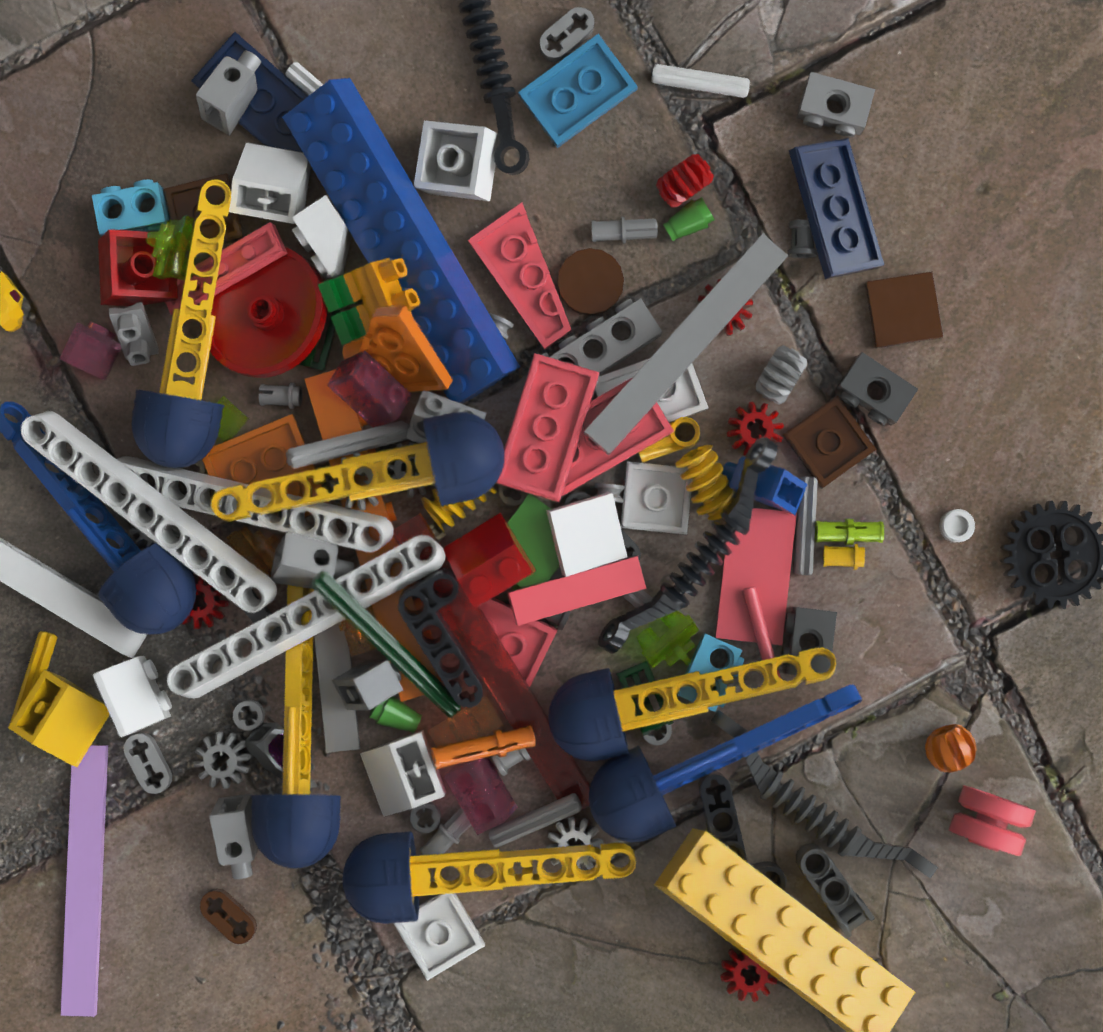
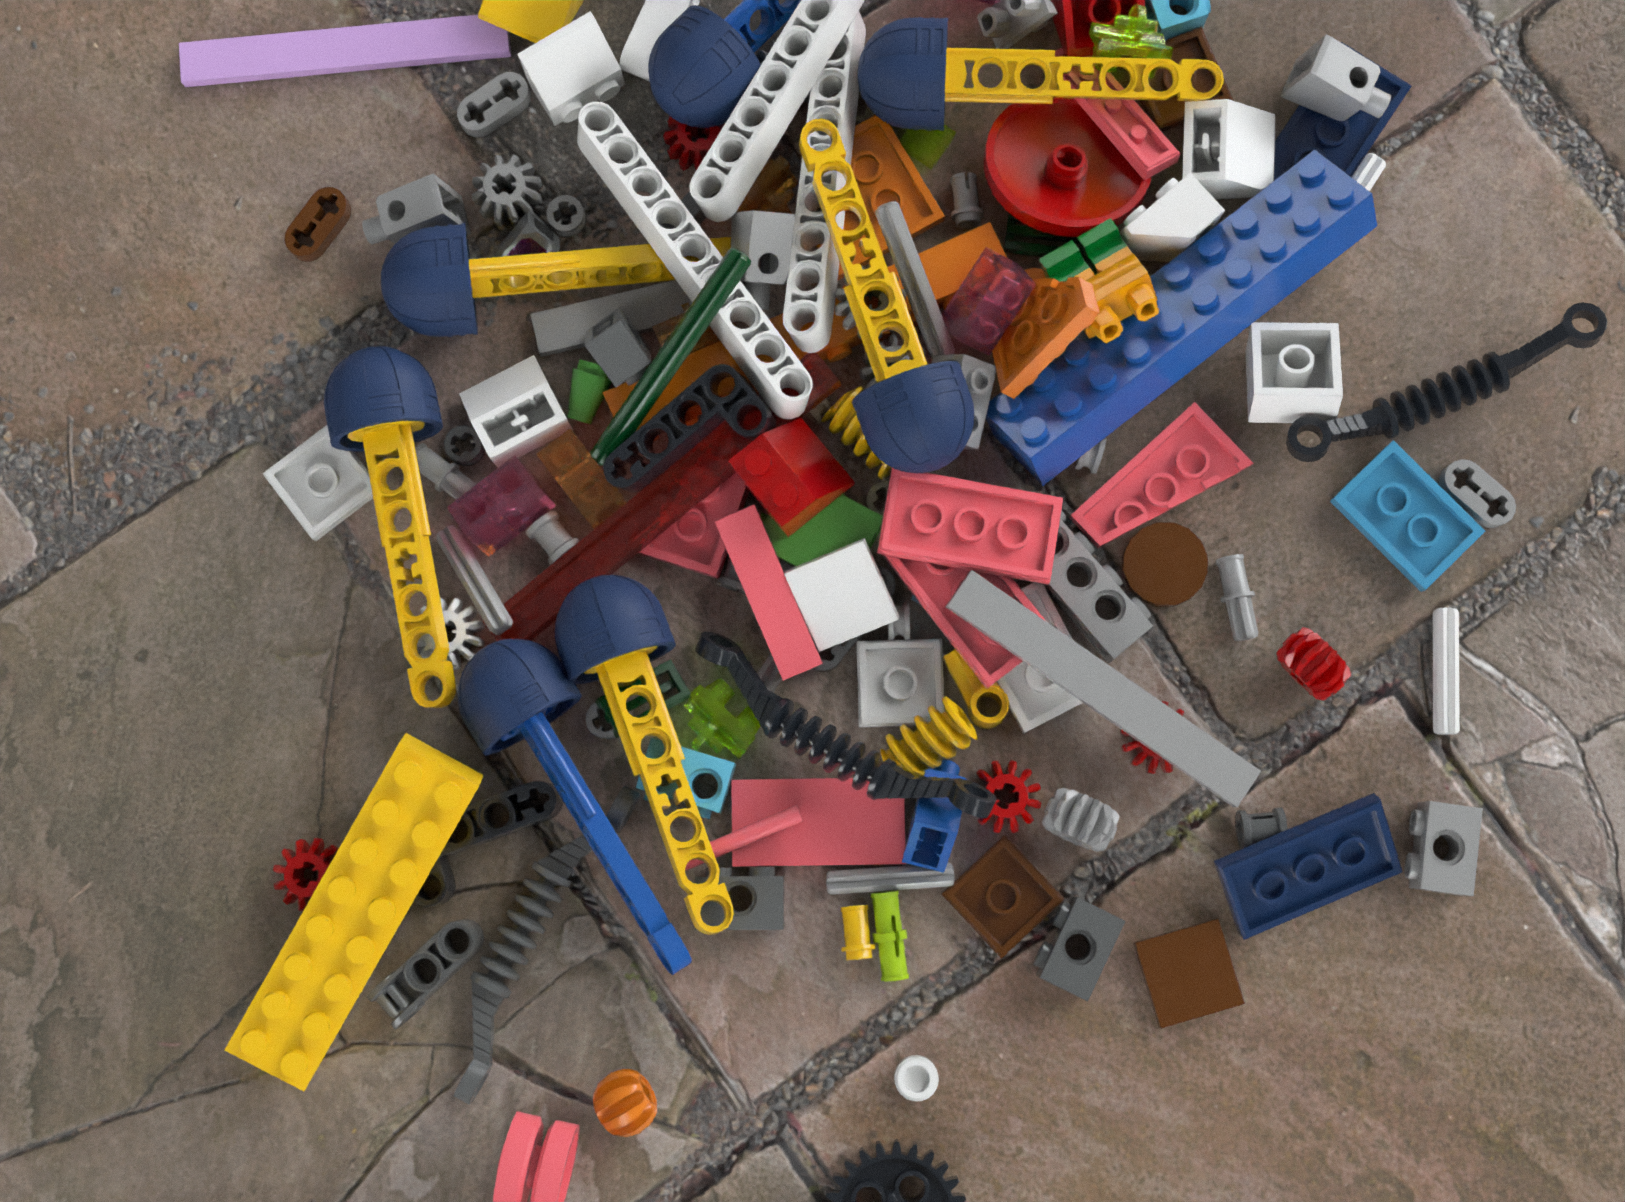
camera: 85 degrees right, 5 degrees down
(483, 747) = (556, 498): orange pin -> none
(689, 219) = (1263, 678): bright green cone -> none

